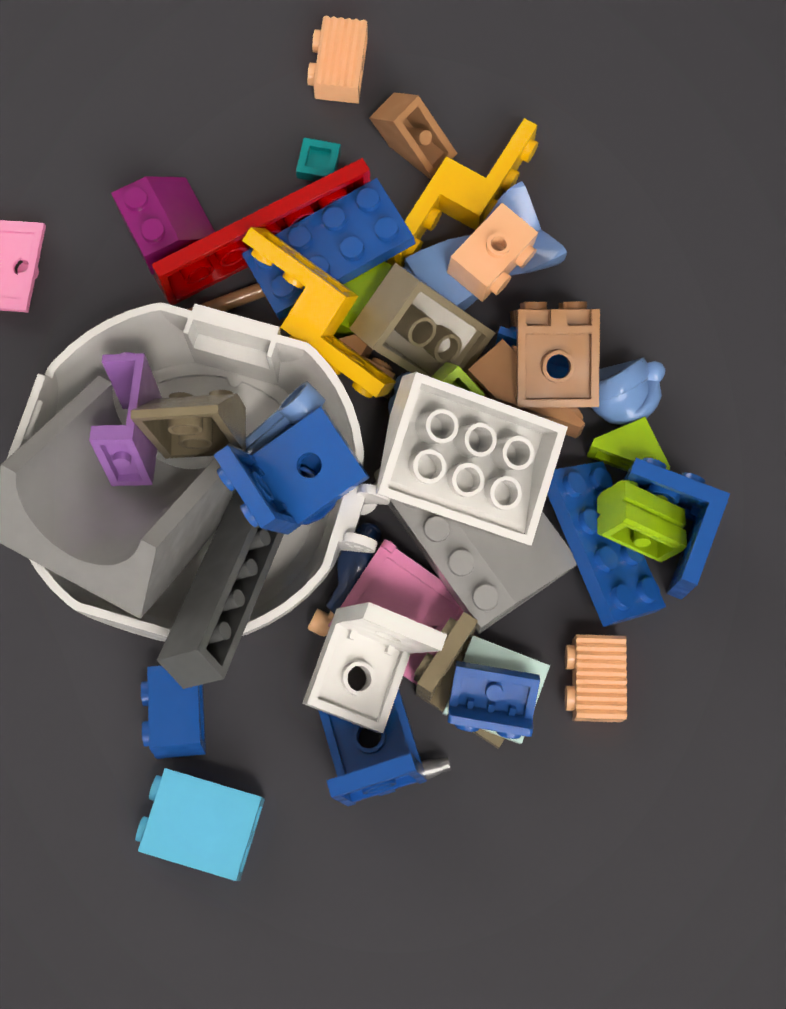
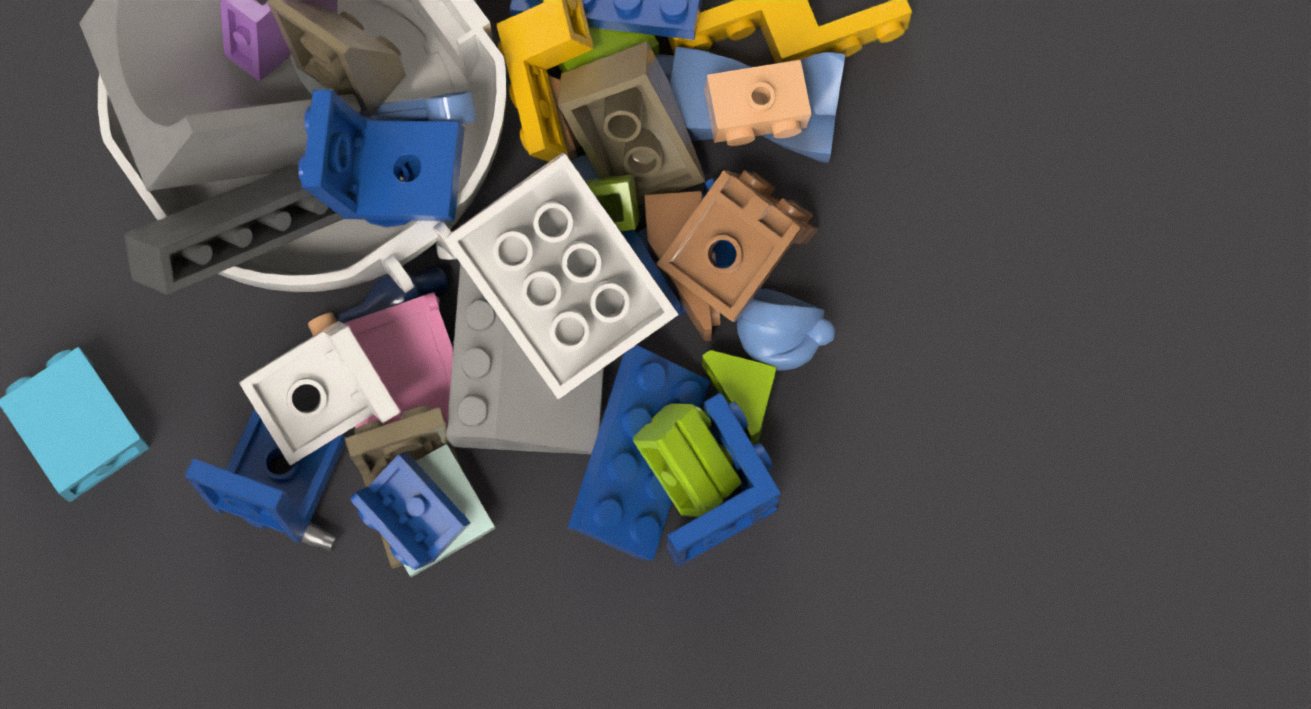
camera: 40 degrees right, 0 degrees up
(174, 716) = (124, 313): blue brick -> none
(597, 678) = (531, 573): light nougat brick -> none

